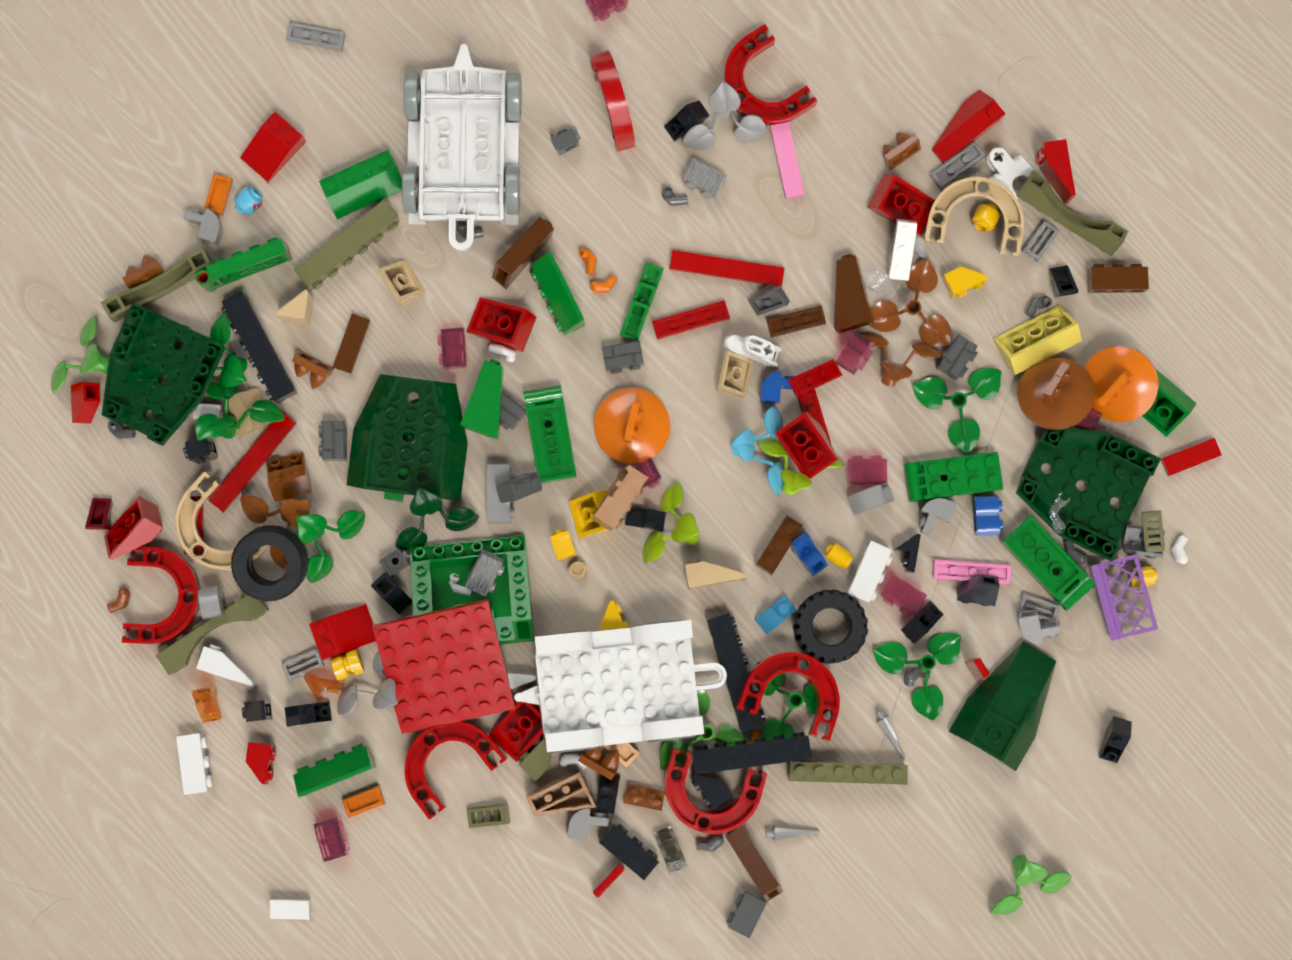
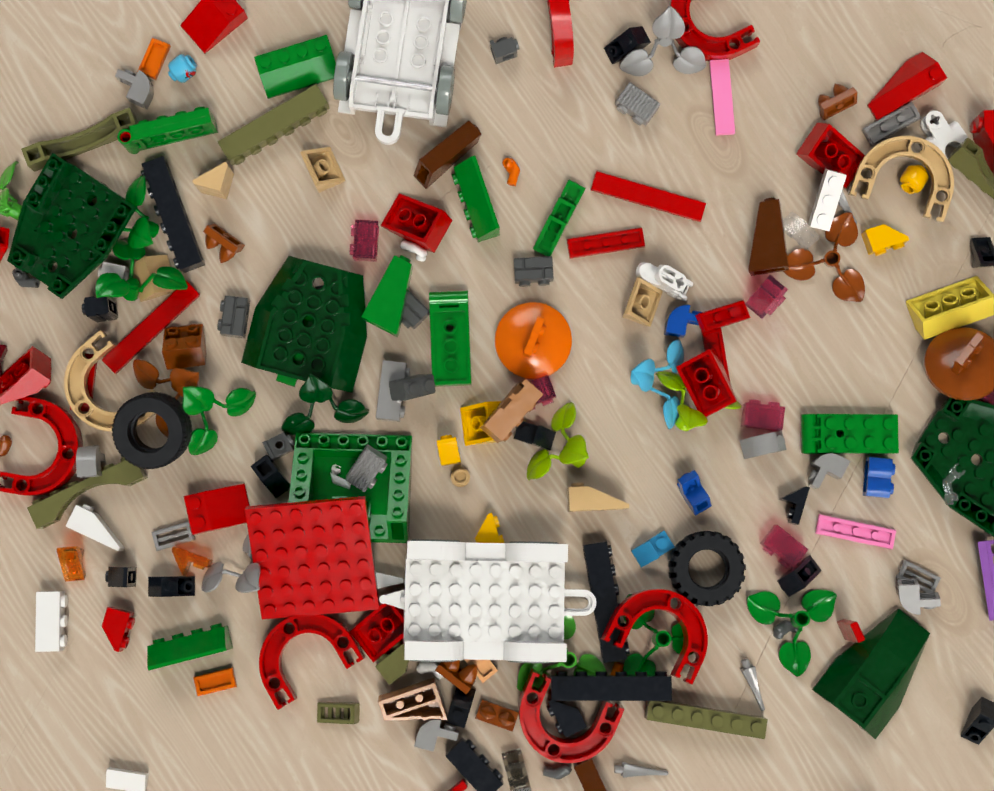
camera: 10 degrees right, 0 degrees up
(148, 271) = (75, 124): dark orange tile -> none
(331, 839) = (177, 715): clear pink brick -> none
(347, 665) = (217, 542): yellow wheel -> none
(351, 344) = (265, 223): reddish brown tile -> none
(462, 230) = (389, 124): dark grey arm -> none
(603, 287) = (523, 199): orange arm -> none
(672, 199) = (602, 120): dark grey arm -> none
(768, 299) = (686, 232): dark grey slope -> none
(779, 545) = (665, 479): reddish brown brick -> none
(796, 321) = (710, 258): reddish brown tile -> none
(838, 555) = (723, 497): yellow brick -> none
(870, 572) = (753, 518): white brick -> none
(892, 371) = (804, 320): dark orange plant -> none
(932, 391) = (837, 347): green plant -> none
(957, 357) = (868, 313): dark grey brick -> none
(979, 590) = (861, 551): black slope -> none
(1032, 253) = (955, 221): light grey tile -> none
(1038, 303) = (955, 271): dark grey arm -> none
(1039, 556) = (927, 524): green hinge -> none
(1075, 555) = (960, 528): dark grey arm -> none

